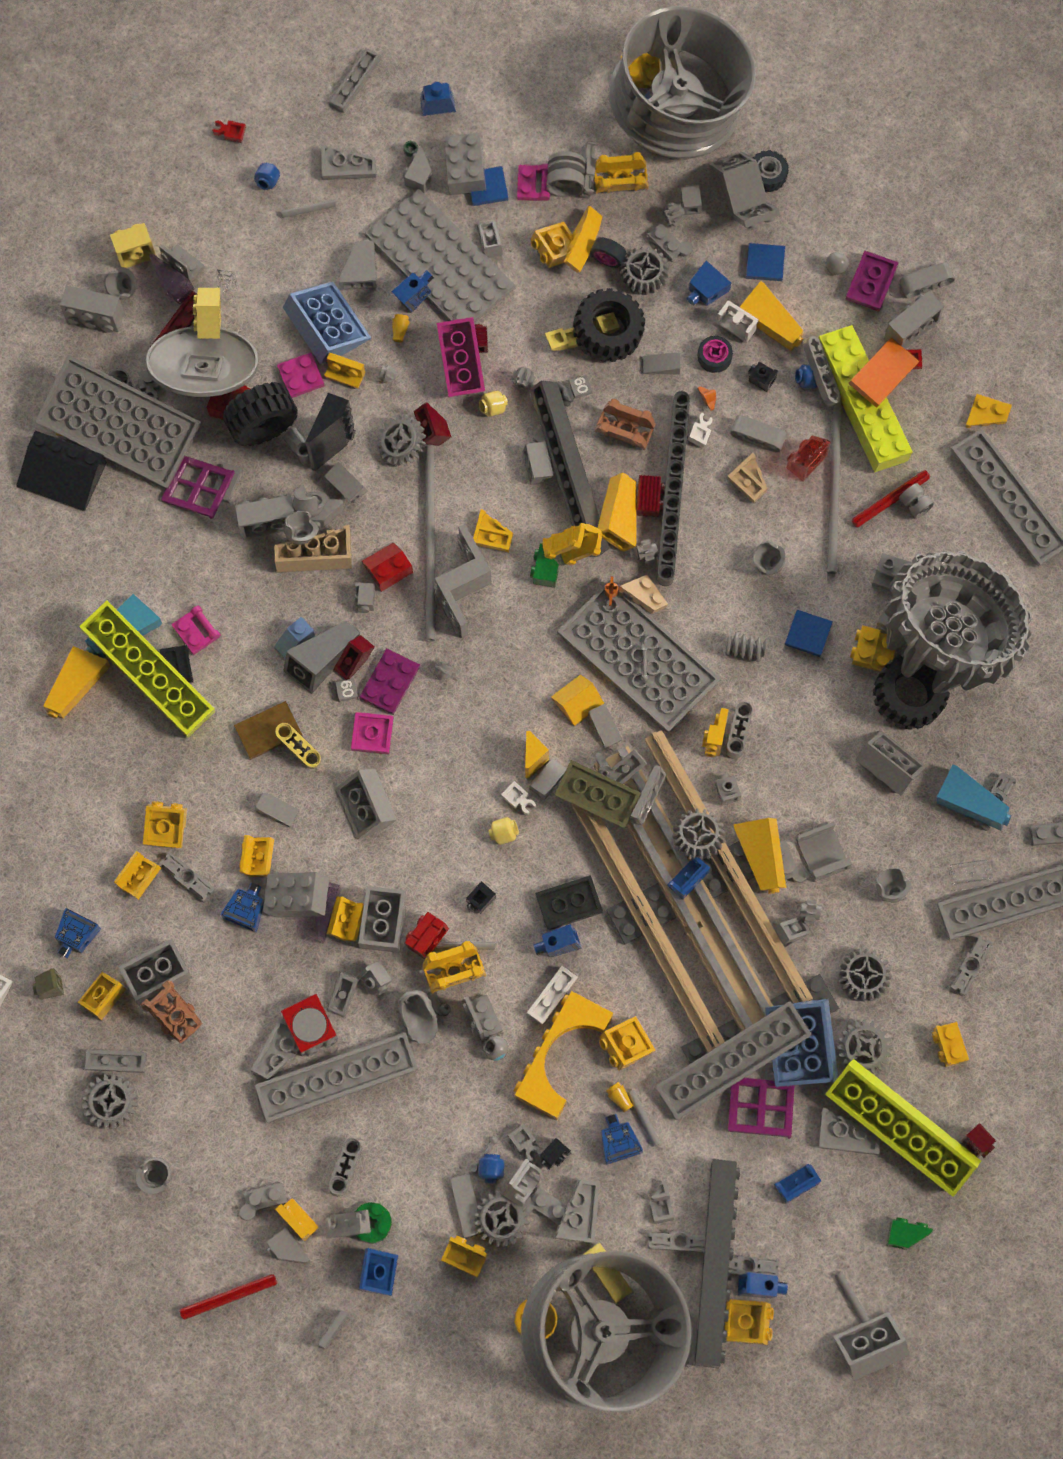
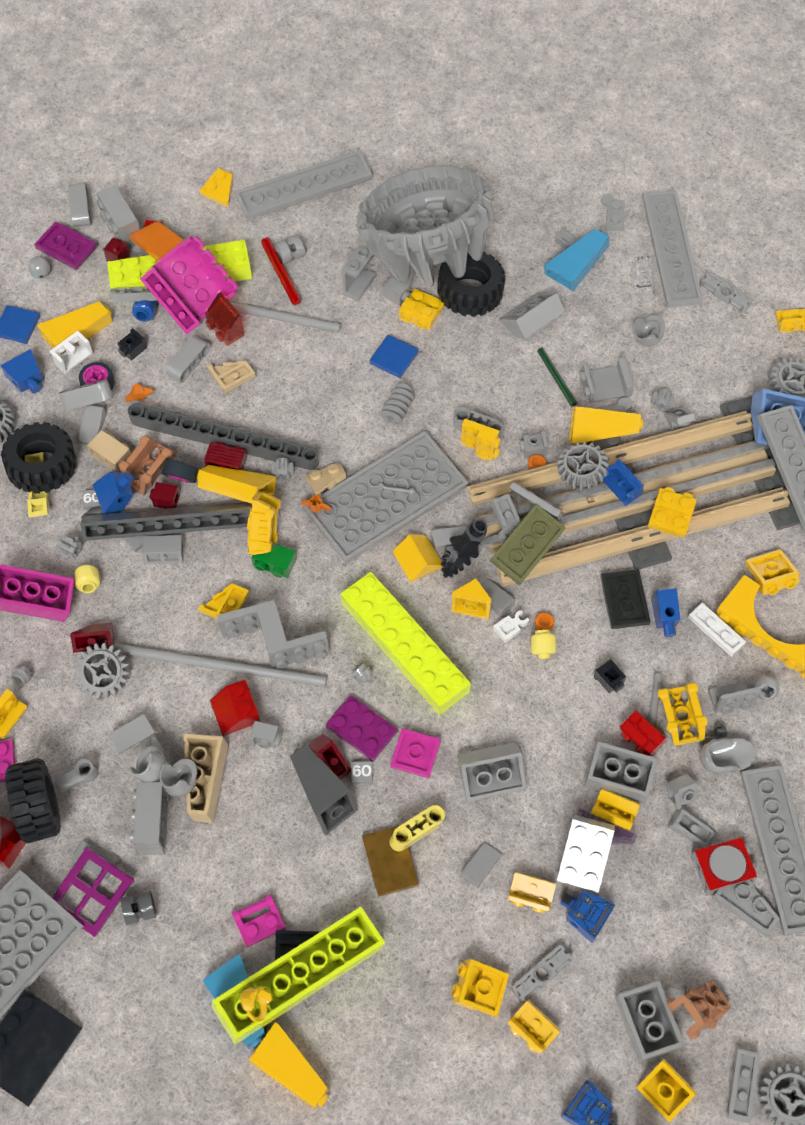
camera: 80 degrees left, 10 degrees down
(112, 625) = (248, 999): none -> yellow piece
(189, 529) = (146, 907): none -> dark grey wheel
(293, 636) = (294, 814): medium blue slope -> none
(330, 430) = (69, 727): black slope -> none
(480, 702) = (405, 643): none -> neon yellow brick
(530, 830) = (544, 621): none -> orange tile
(585, 402) = (114, 491): none -> blue torso
(589, 737) = (463, 548): none -> black plant
(595, 450) = (164, 495): none -> dark red brick
(621, 456) = (180, 471): none -> black wheel
(635, 387) = (109, 450): none -> tan brick
(665, 931) = (672, 512): none -> yellow plate
(689, 348) = (85, 395): none -> light grey beam
(699, 432) = (173, 404): white plate -> none
(709, 796) = (536, 461): none -> orange tile
(769, 558) = (317, 367): light grey helmet -> none
(819, 801) = (553, 371): none -> dark green bar
(832, 406) = (188, 282): none -> dark pink slope
(863, 991) = (715, 369): light grey gear -> none
(872, 332) = (116, 250): none -> dark red brick

